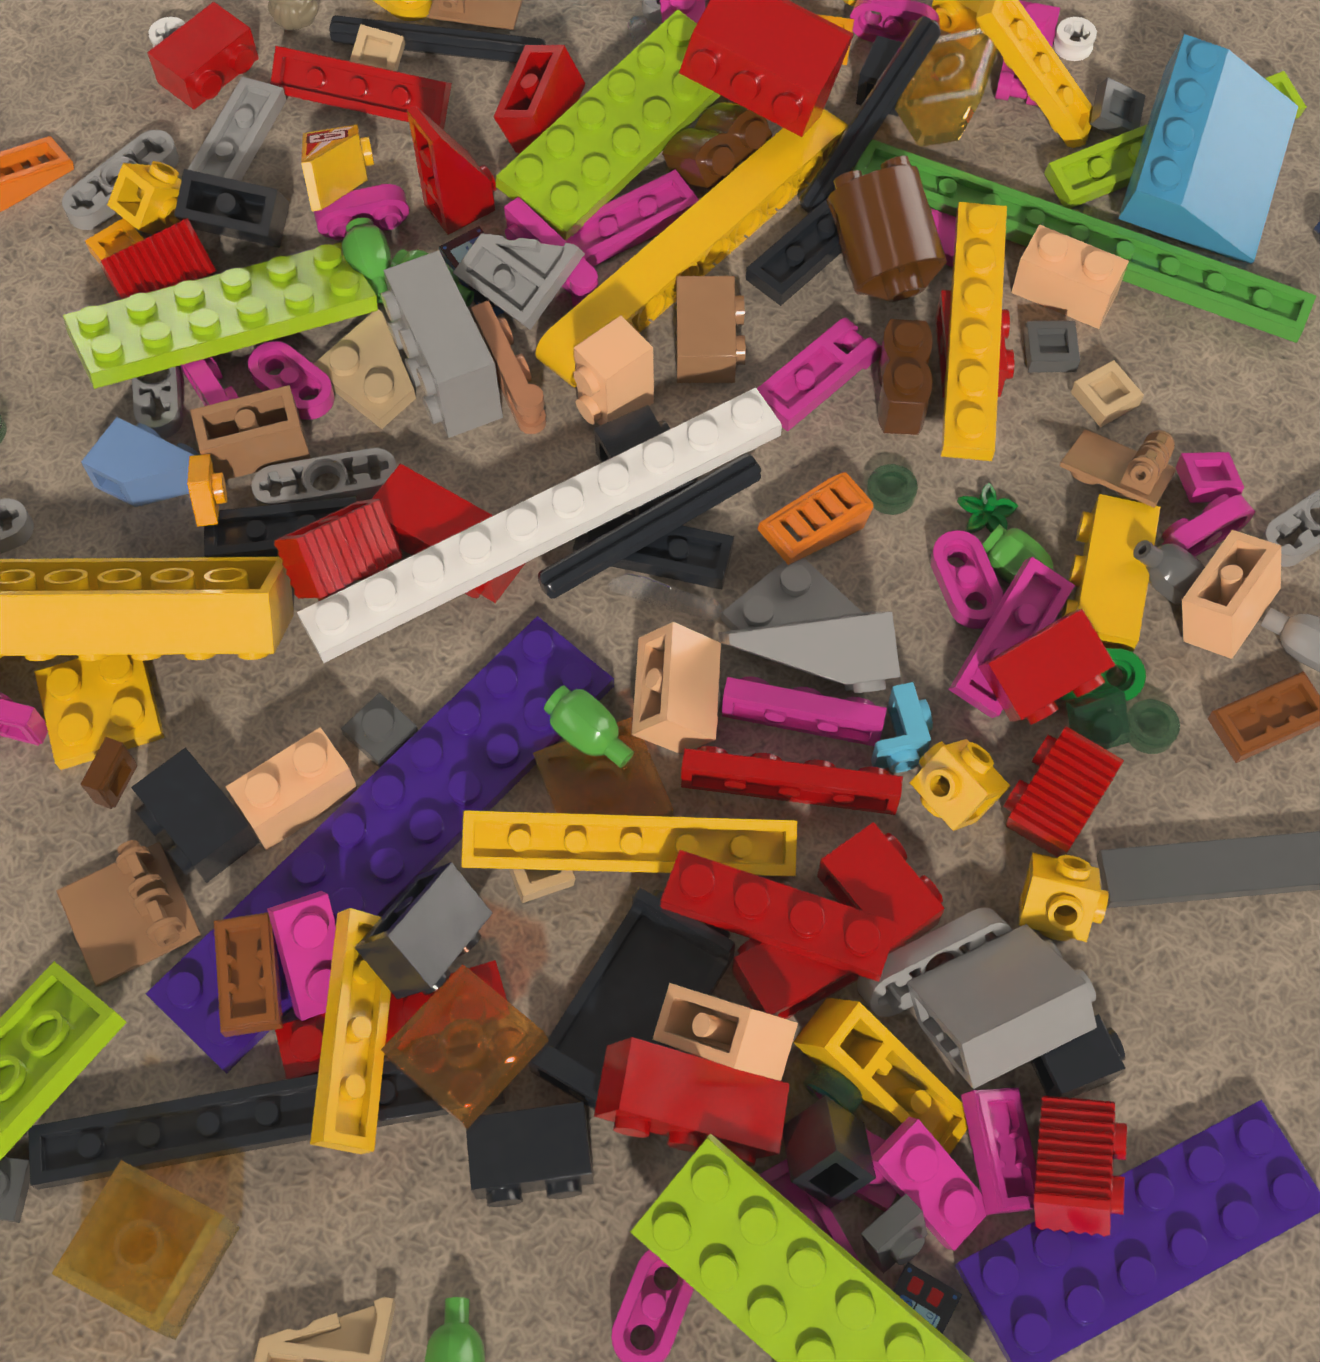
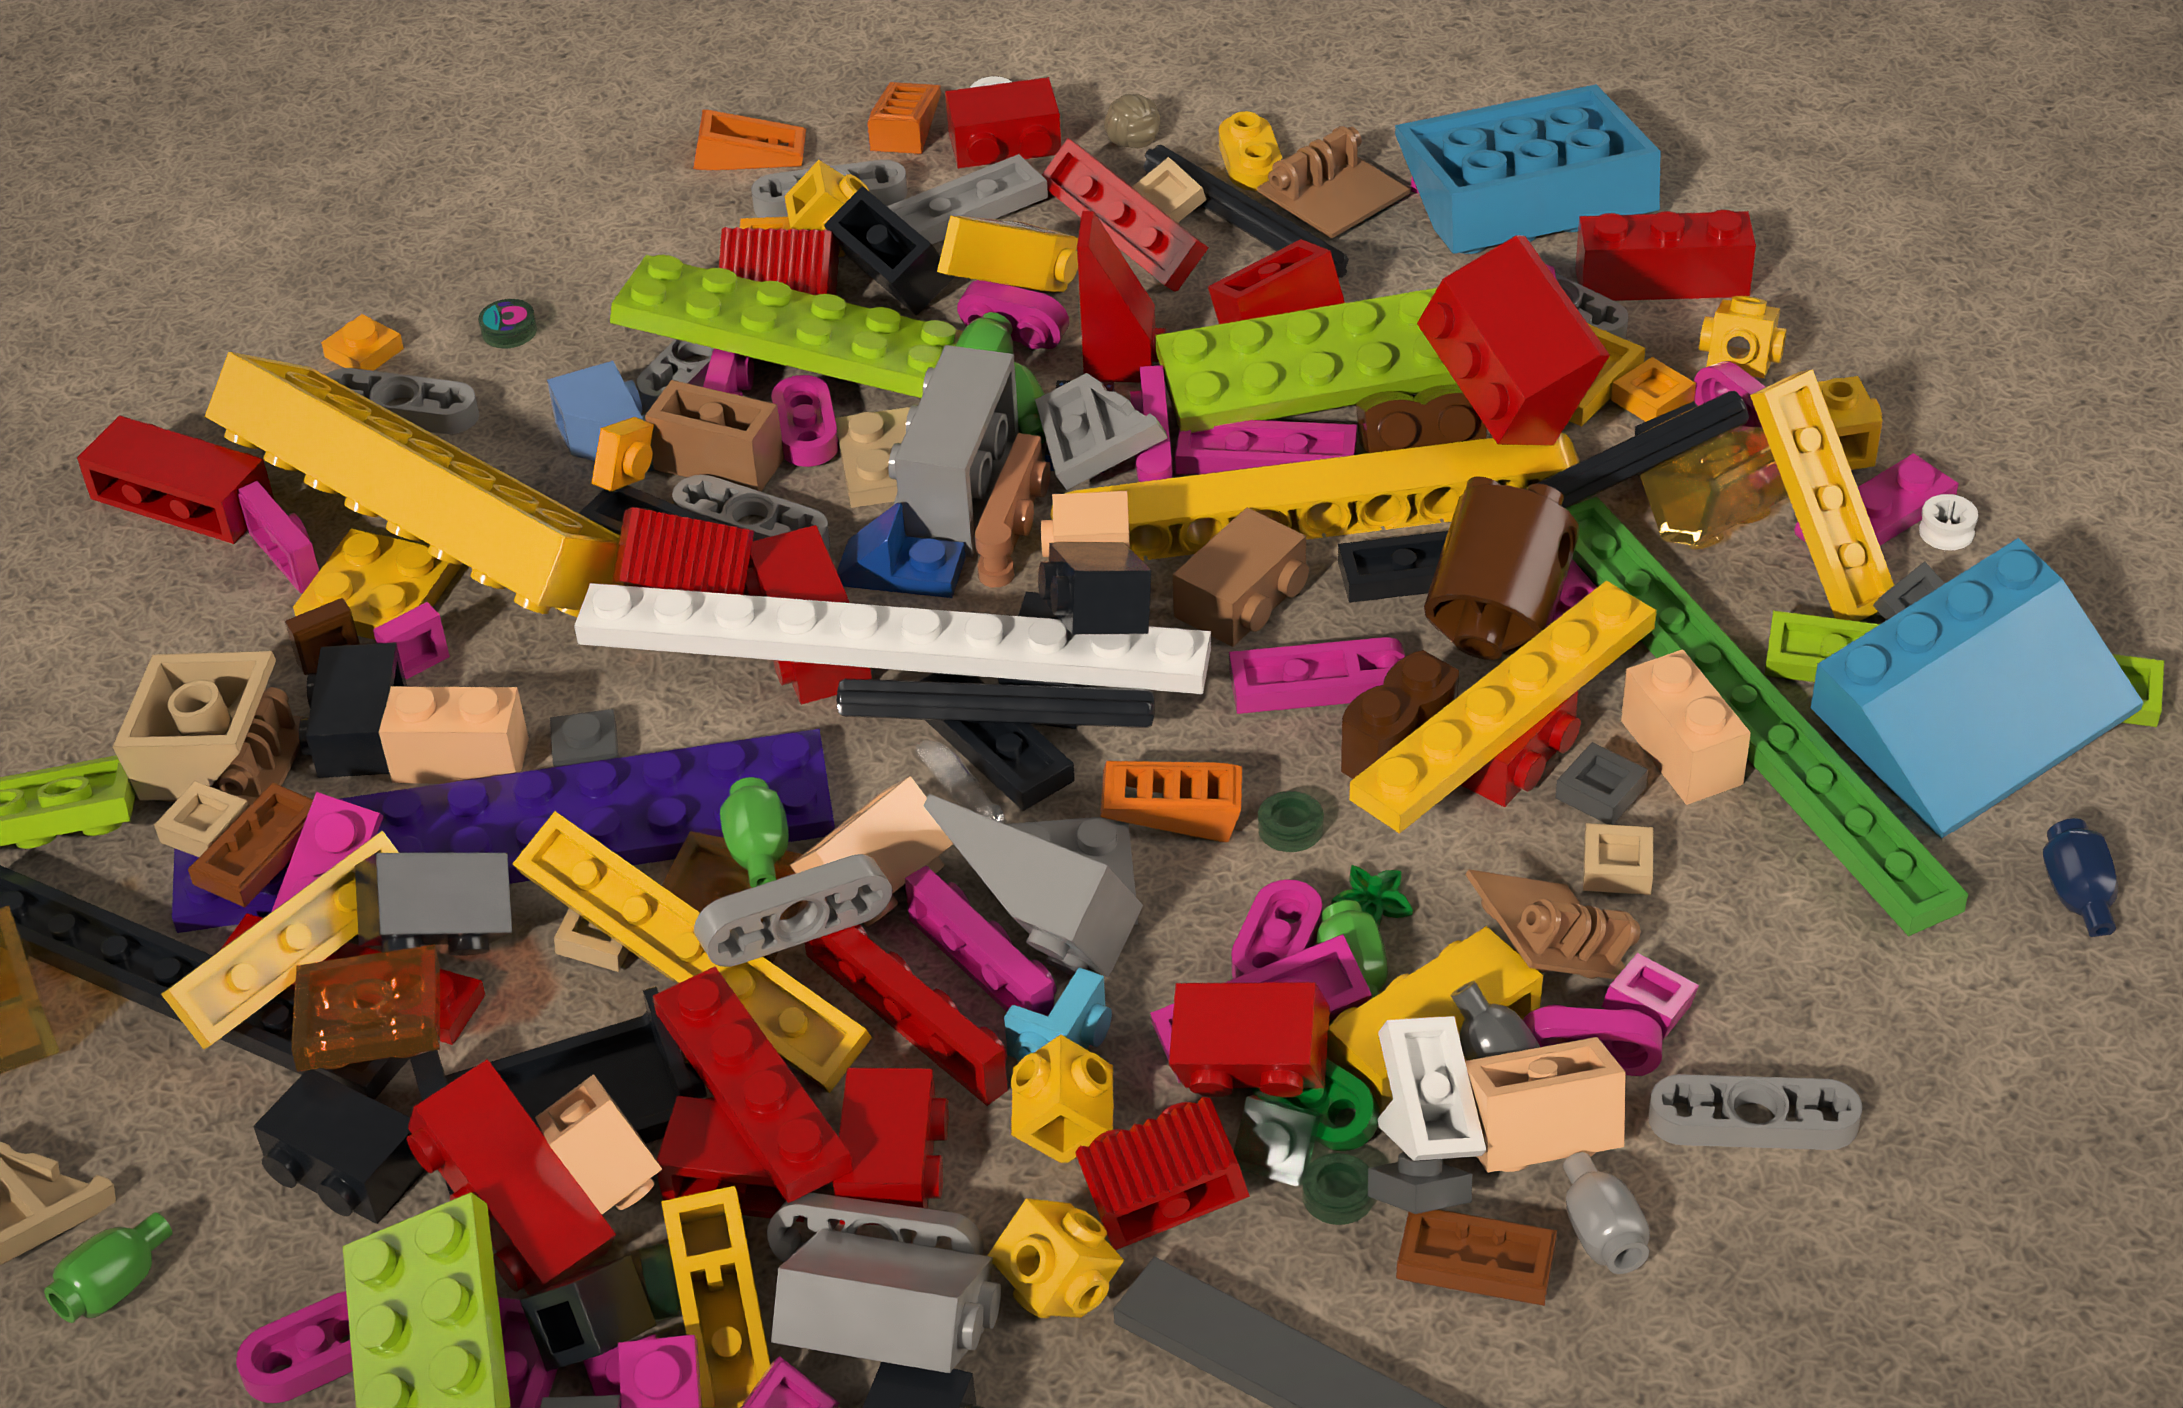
camera: 40 degrees right, 20 degrees down
(106, 911) = (190, 719): none -> tan slope
(116, 87) = (903, 117): none -> orange slope
(180, 730) = (417, 637): none -> dark pink plate
(186, 985) = (198, 818): none -> tan plate
(459, 454) = (890, 561): none -> blue slope
(672, 402) = (1096, 587): none -> black brick
(694, 774) = (733, 928): none -> light grey beam
(1184, 638) = (1431, 1090): none -> white slope
(1207, 694) = (1419, 1184): none -> dark grey plate

